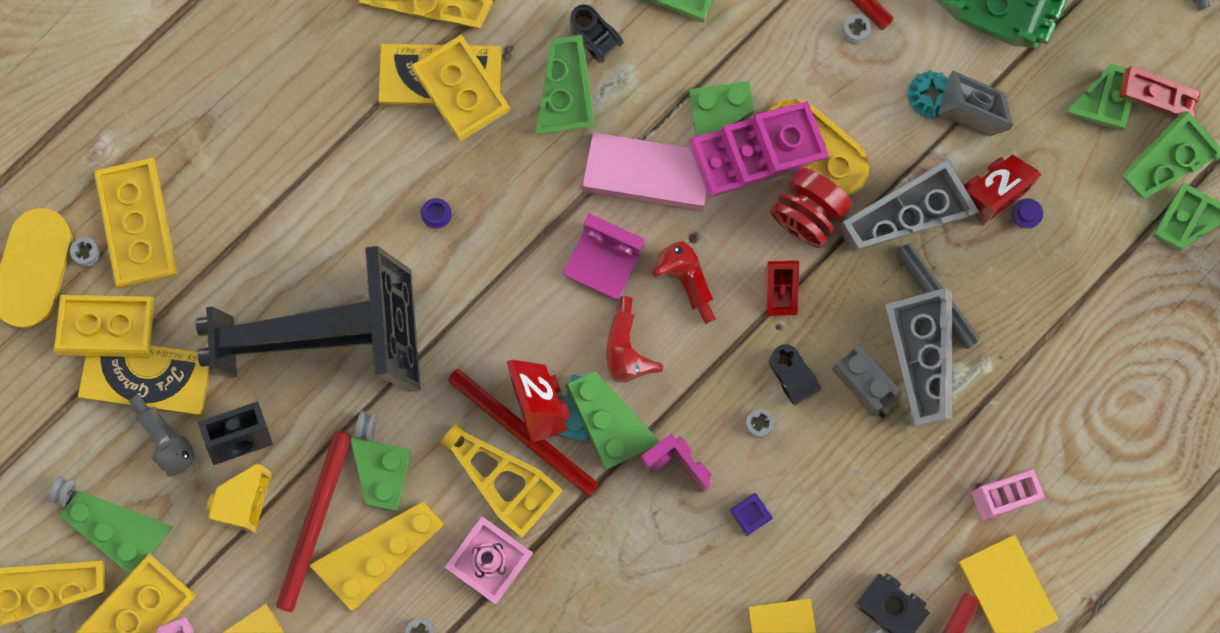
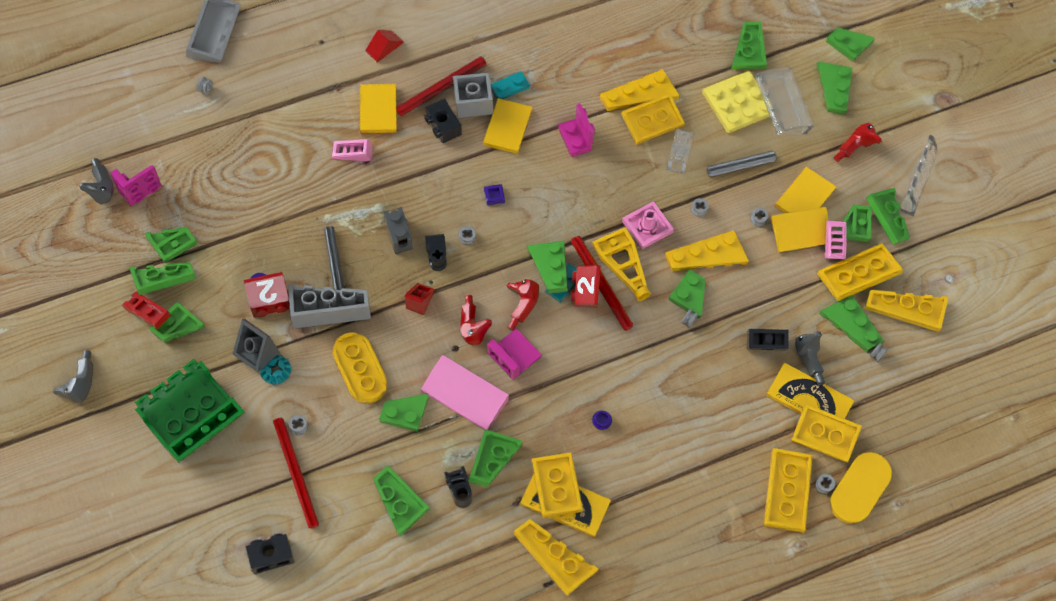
camera: 160 degrees left, 15 degrees down
(240, 499) = (778, 301): yellow slope -> none
(314, 521) = (737, 283): red axle -> none
(383, 321) = (684, 361): black piece -> none
(660, 457) = (528, 233): dark pink bracket -> none
(758, 149) = (394, 373): dark pink slope -> none
(813, 204) = (386, 323): red wheel -> none
(924, 350) = (357, 233): light grey wedge -> none

